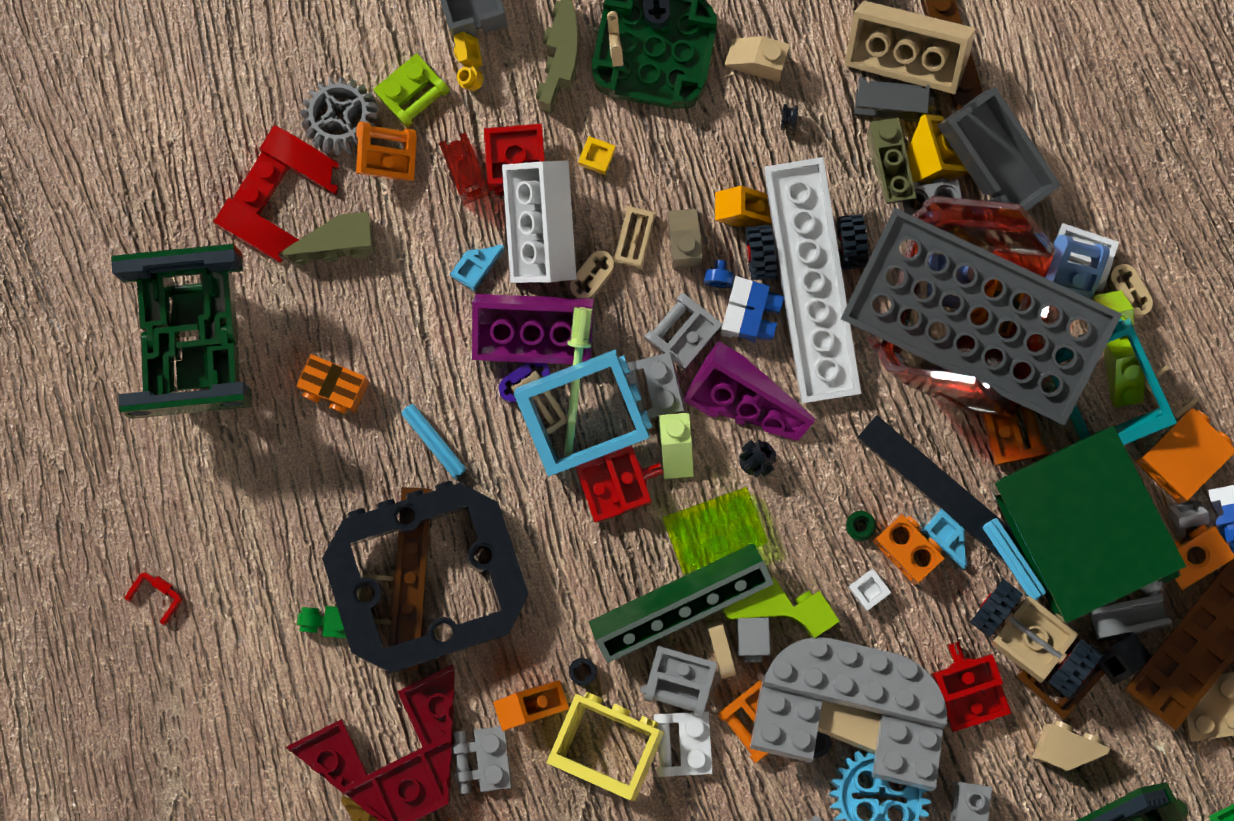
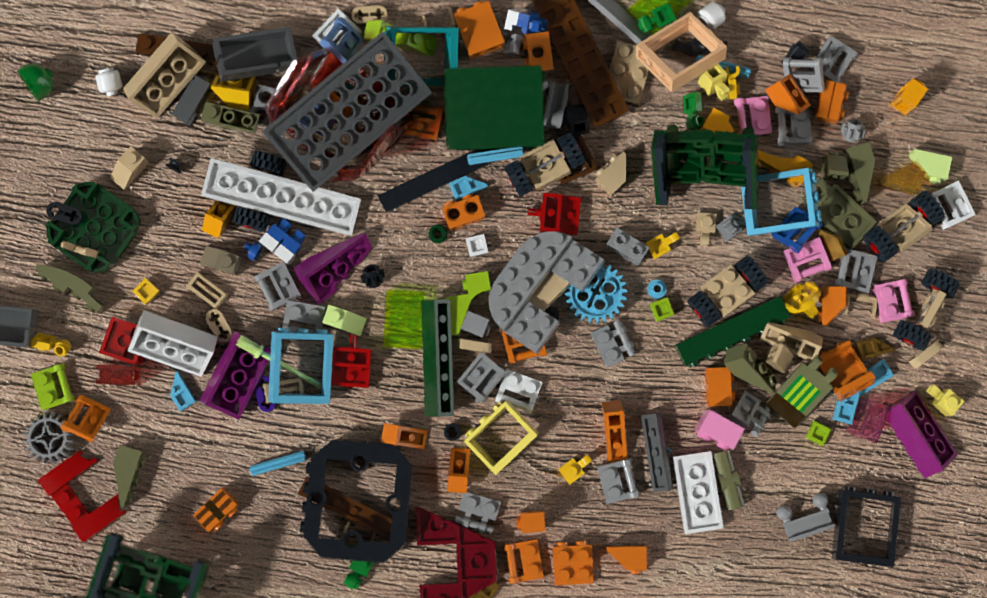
camera: 75 degrees left, 5 degrees up
(546, 604) = (404, 436): none -> orange slope

